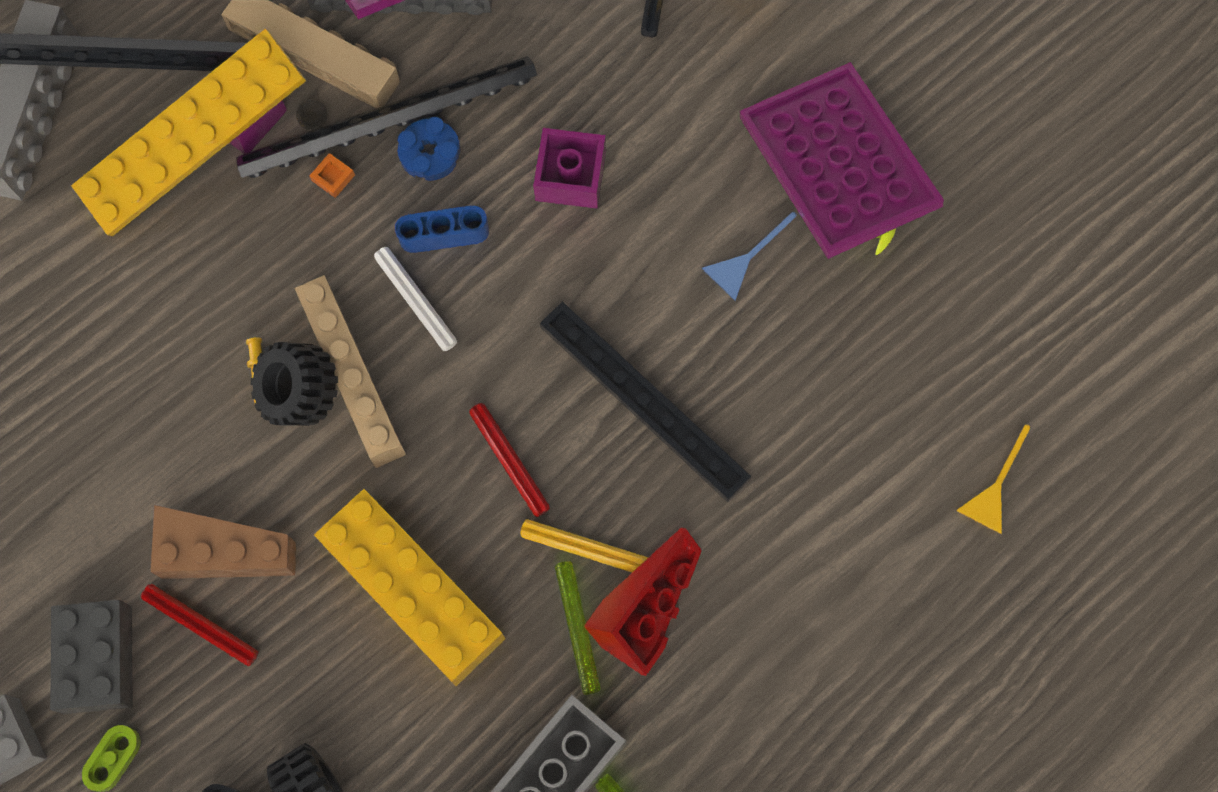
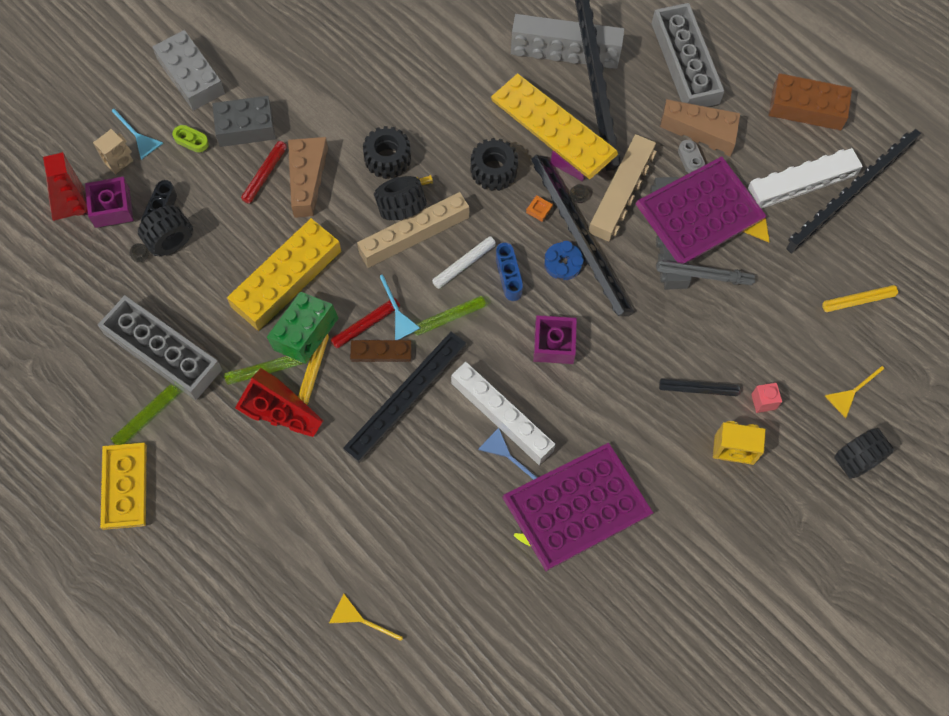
camera: 80 degrees right, 5 degrees down
(177, 390) = (382, 140): none -> black tyre
(233, 214) = (494, 151): none -> black tyre
(508, 328) = (450, 315): none -> clear neon green axle
(516, 554) = (302, 327): none -> green piece
(520, 398) = (403, 324): none -> medium azure piece
(560, 438) = (380, 351): none -> reddish brown plate
(684, 256) = (502, 413): none -> white brick

